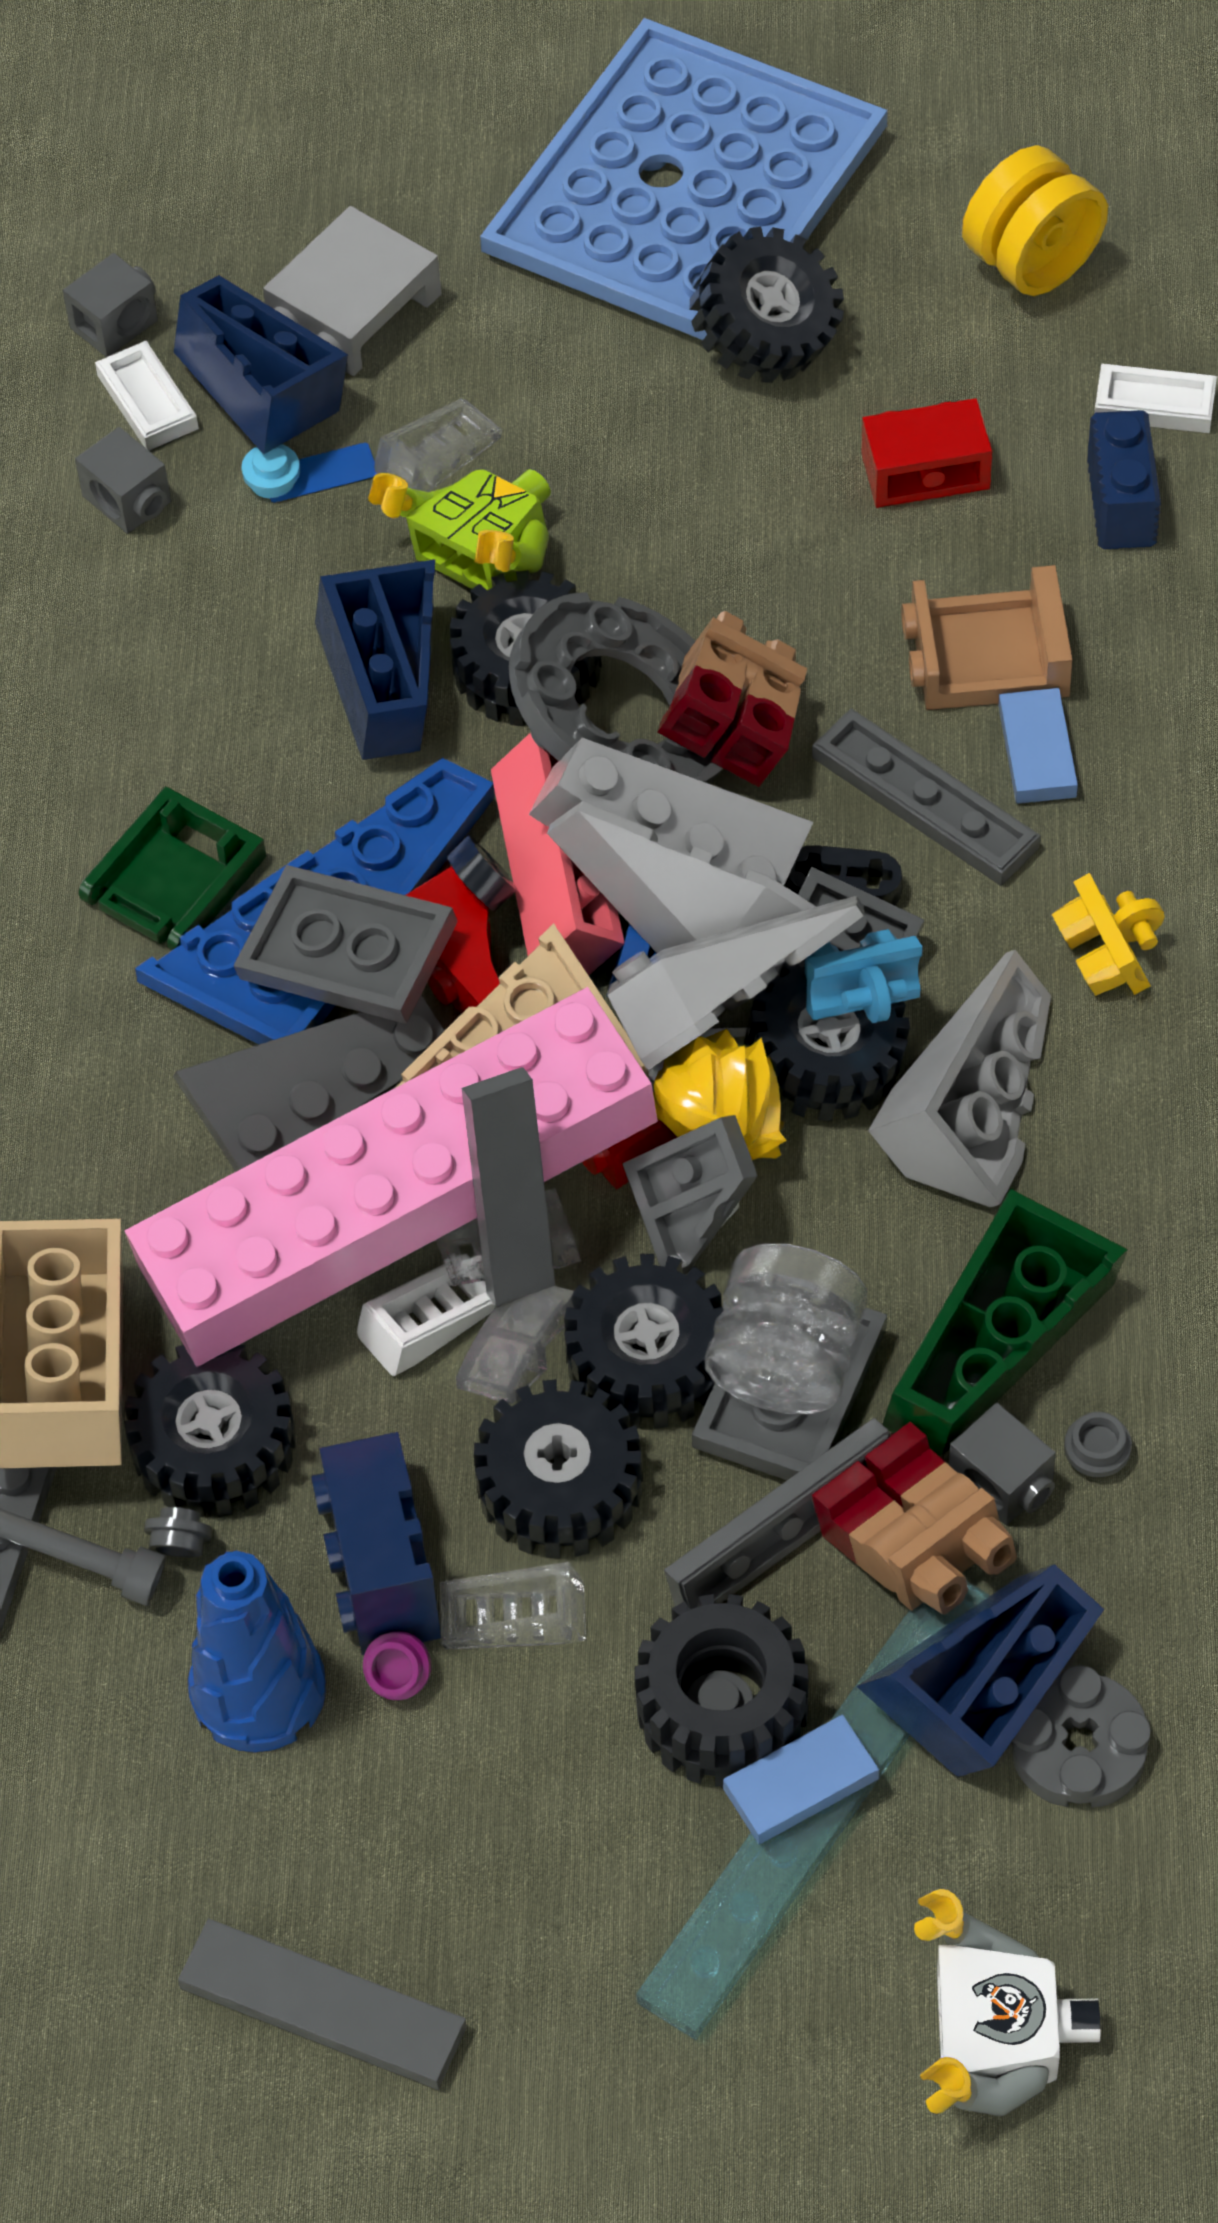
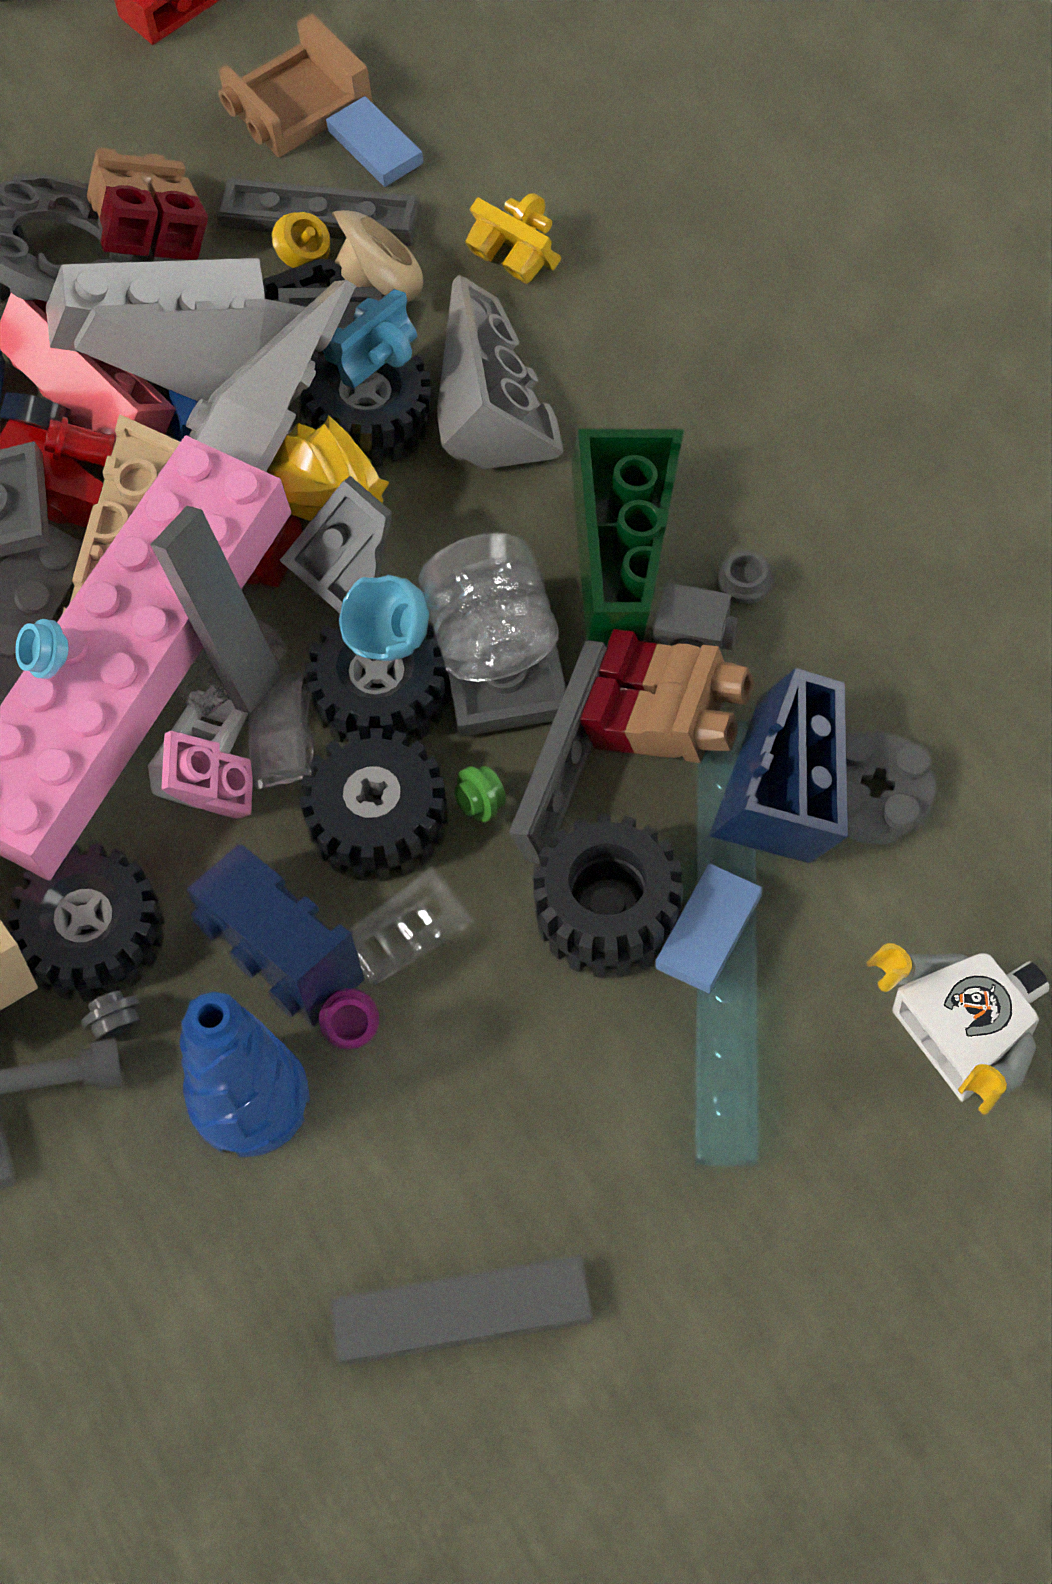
camera: 30 degrees left, 5 degrees up
(310, 1133) = (41, 648): none -> medium azure plate
(407, 1346) = (205, 777): none -> bright pink slope
(499, 929) = (78, 442): none -> red pin
(669, 1515) = (479, 793): none -> bright green plate
(675, 1282) = (384, 618): none -> medium azure hair
(879, 820) = (300, 239): none -> yellow hat
(943, 885) = (376, 256): none -> tan hat

